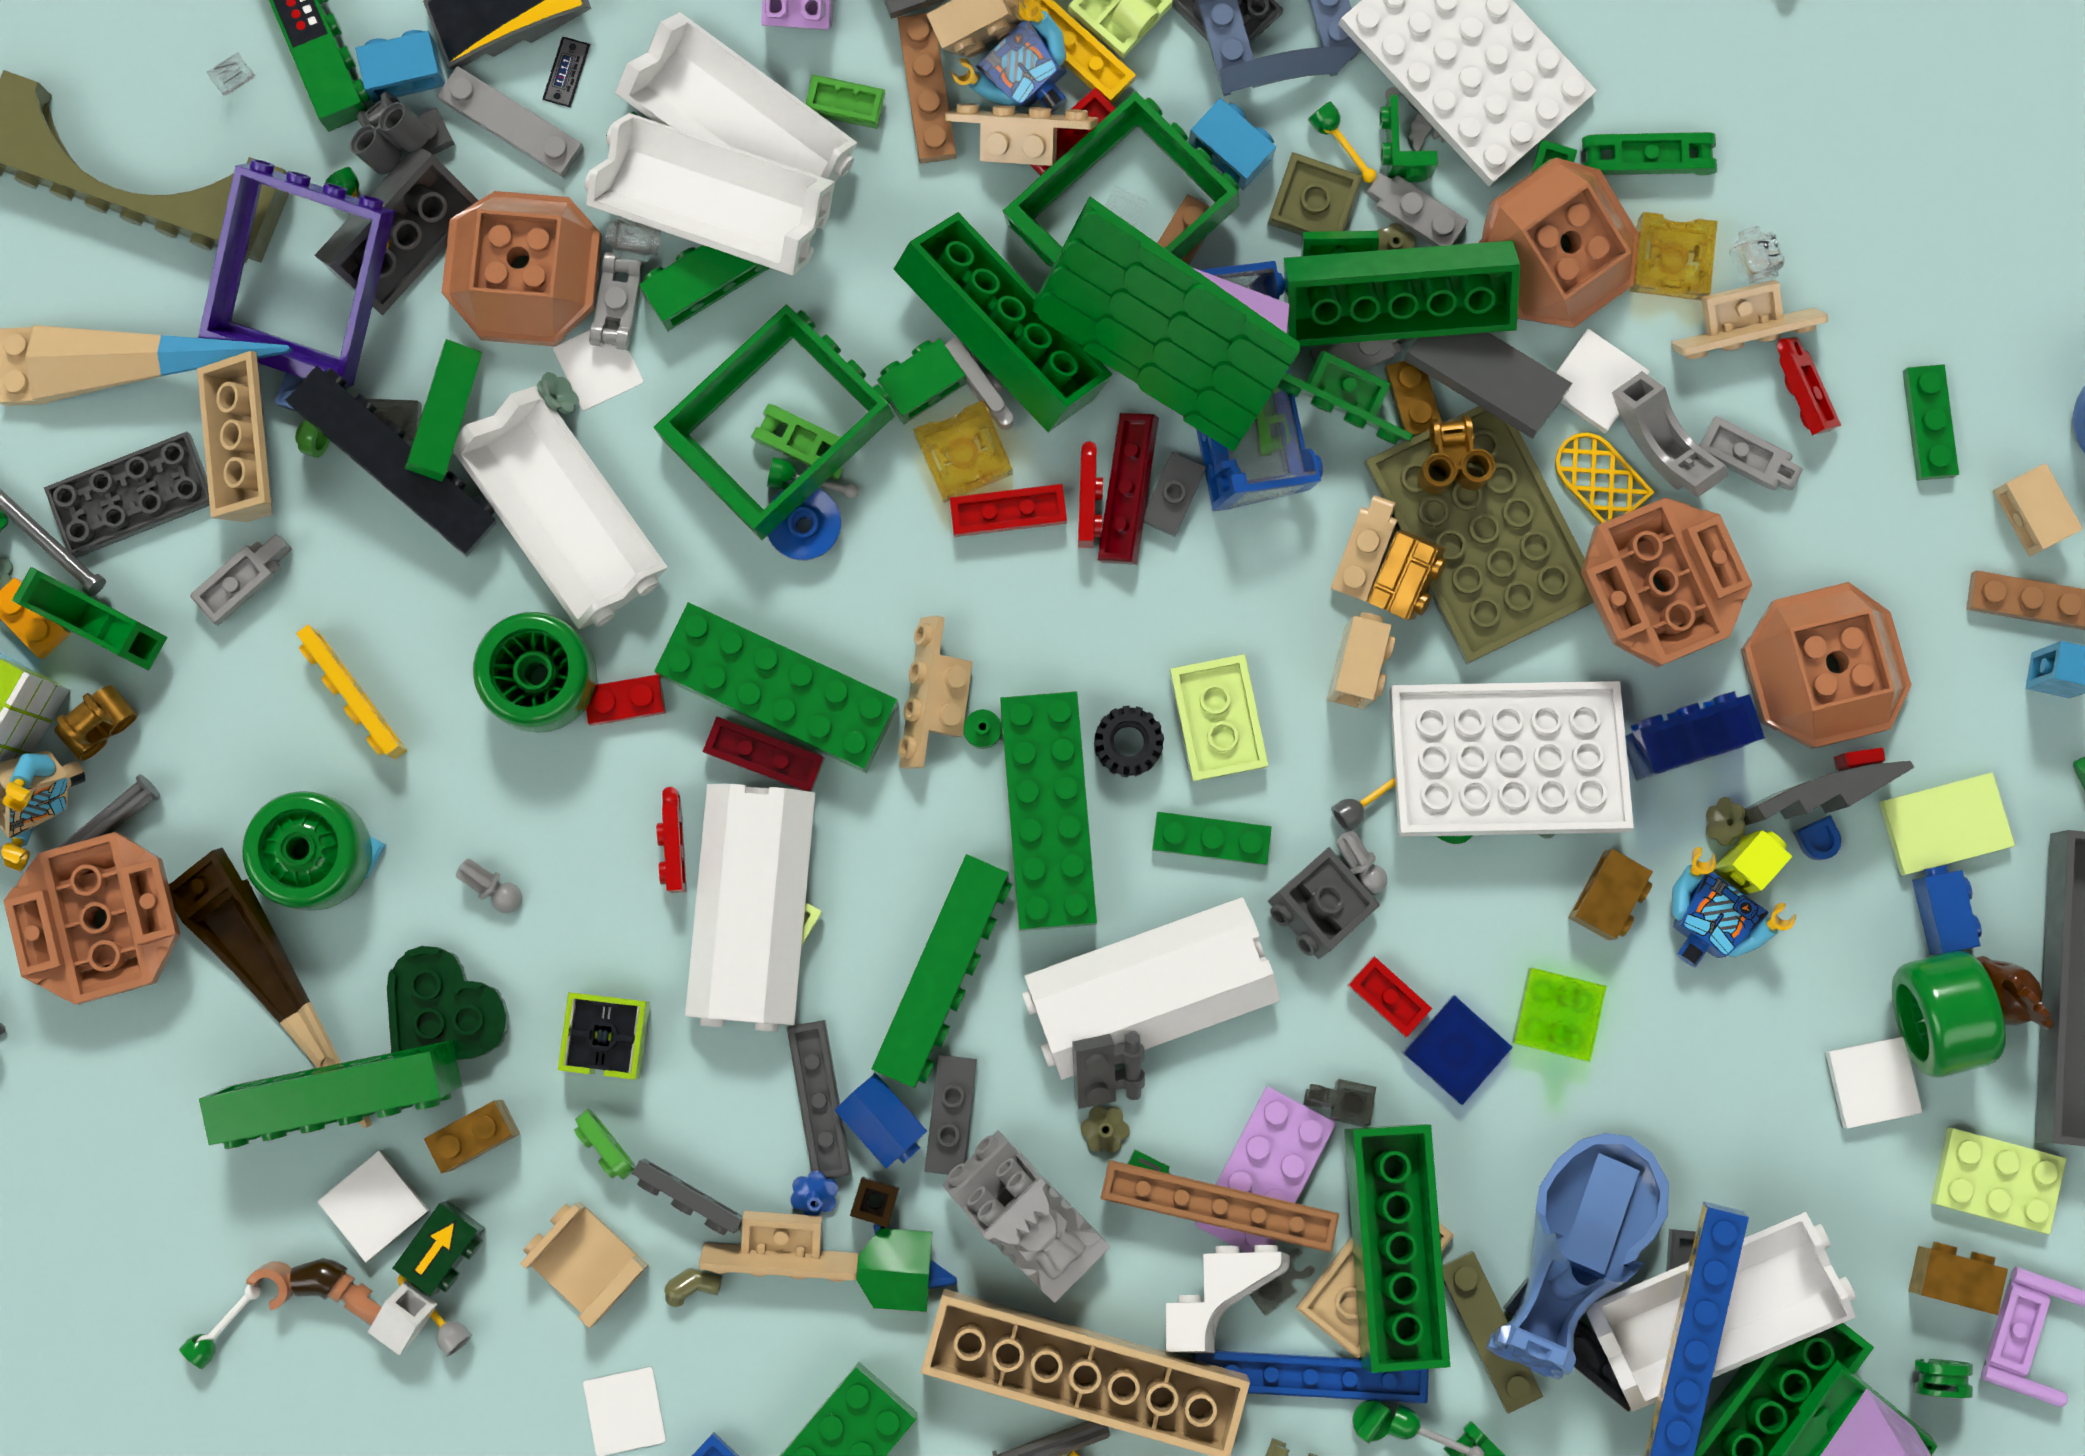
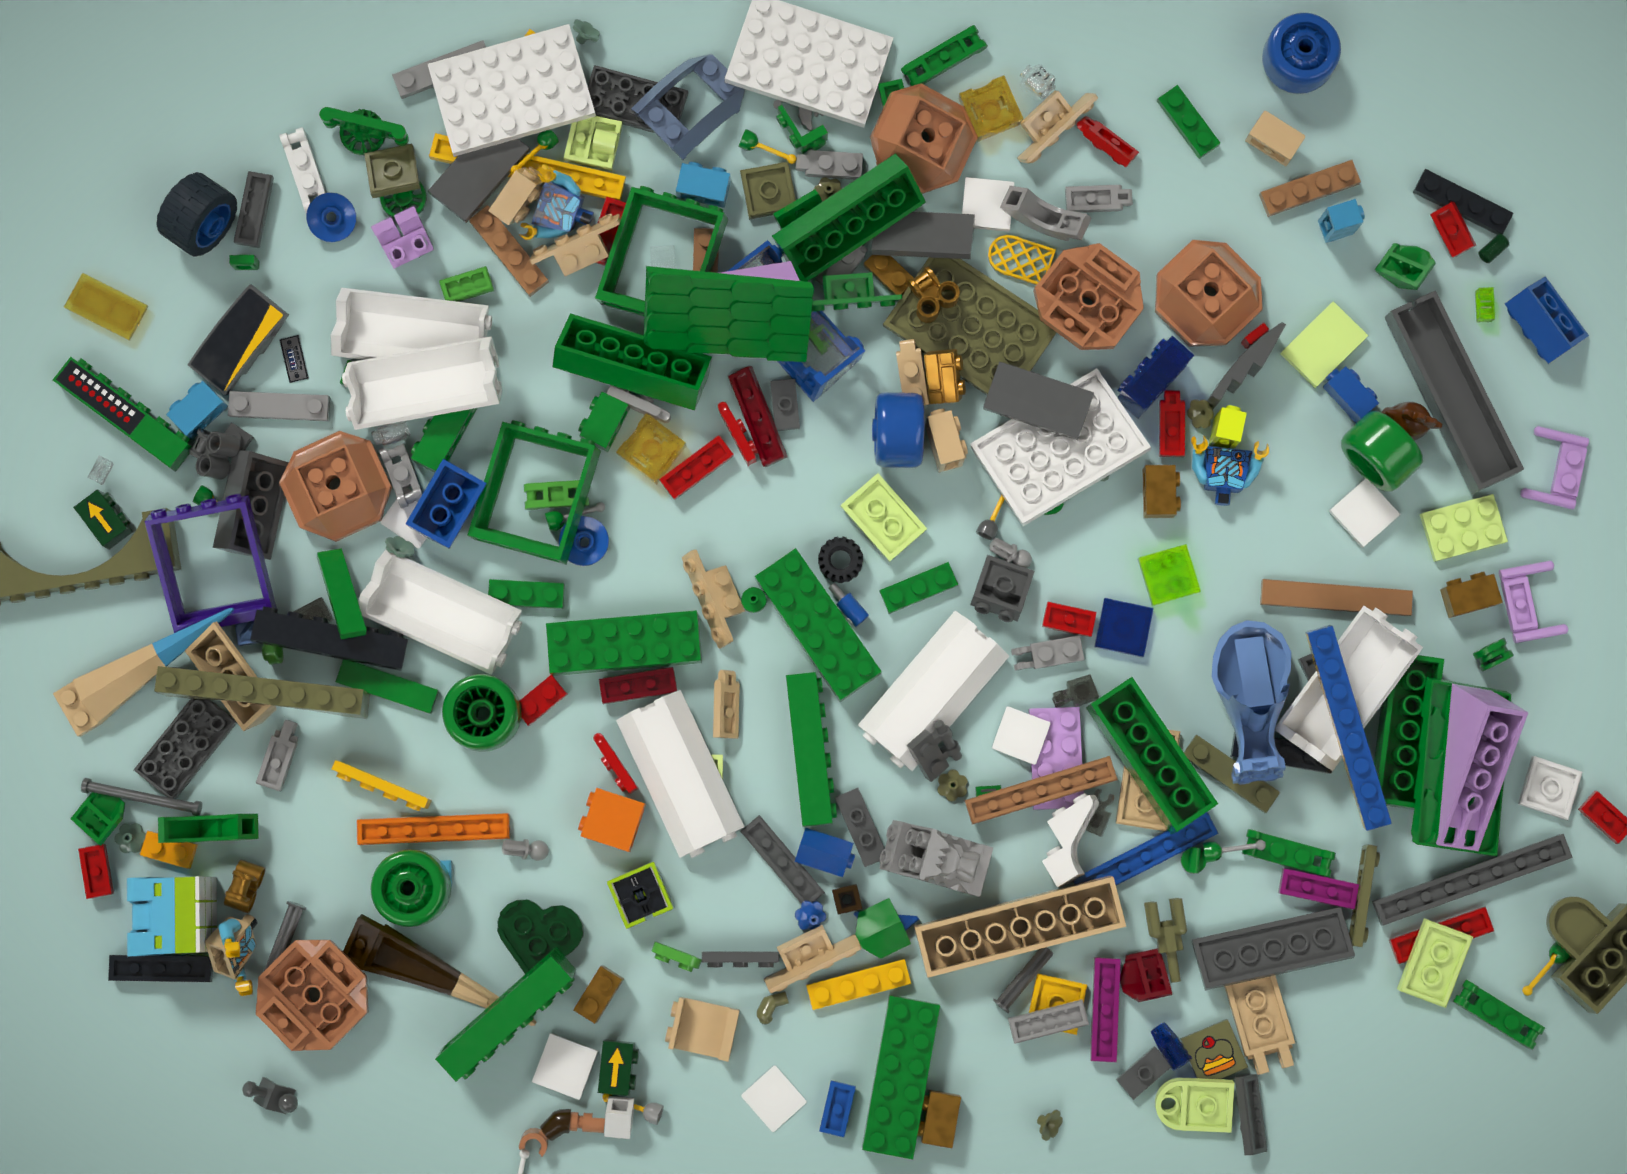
camera: 25 degrees left, 0 degrees up
(197, 139) = (103, 518): none -> dark green brick
(262, 479) = (282, 693): none -> olive arch
(386, 790) = (433, 829): none -> orange tile
(436, 567) = (387, 686): none -> green tile
(624, 913) = (612, 819): none -> orange brick
(648, 369) = (446, 504): none -> blue slope
(690, 550) = (528, 593): none -> green plate
(825, 1324) = (858, 984): none -> yellow plate
(864, 848) = (726, 706): none -> tan hinge
(1105, 810) = (849, 606): none -> blue piece
(1235, 1116) = (1021, 735): none -> white sticker
(1305, 612) = (898, 430): none -> blue wheel
(1339, 1028) = (1051, 653): none -> light grey hinge
(1516, 680) = (1038, 400): none -> dark grey tile
(1677, 815) = (1171, 425): none -> red hinge
(1769, 1174) = (1335, 597): none -> medium nougat tile
(1819, 839) = (1258, 393): blue tile -> none

